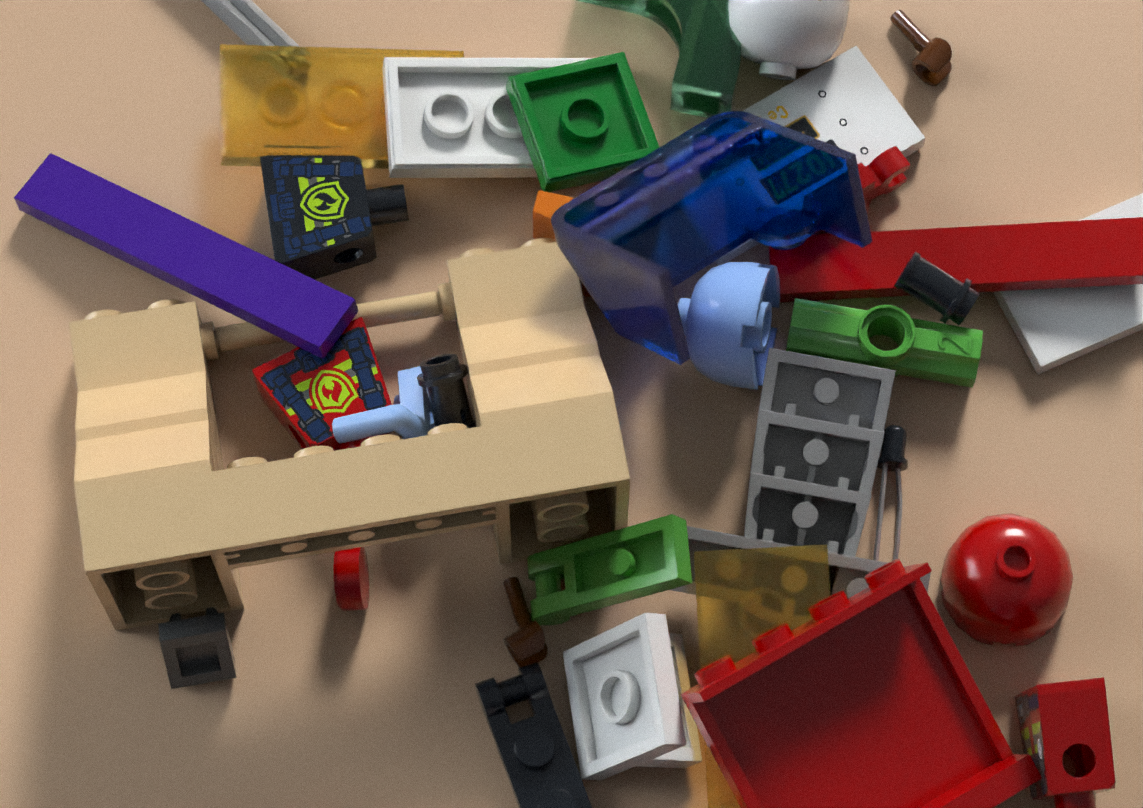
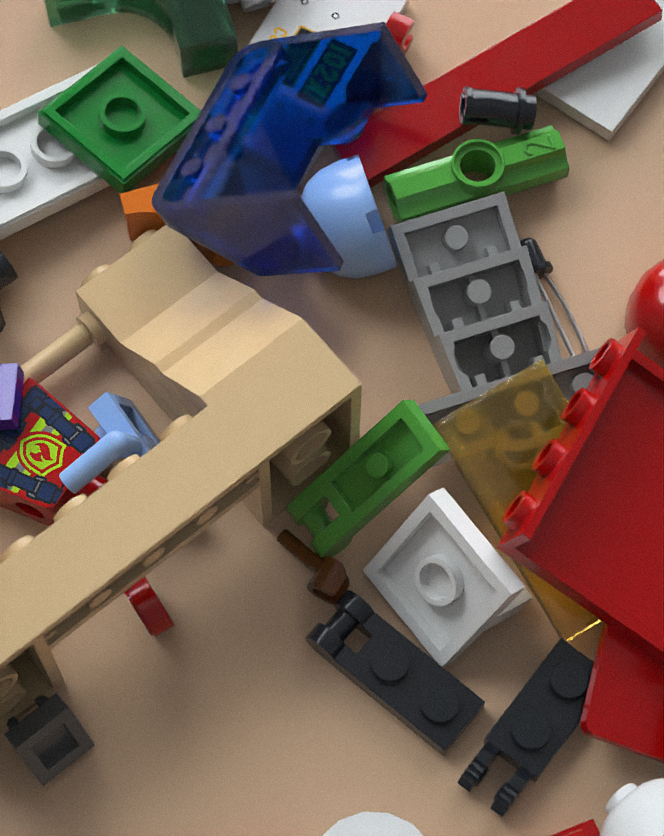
camera: 30 degrees left, 0 degrees up
(446, 389) = (142, 402): black pin -> none

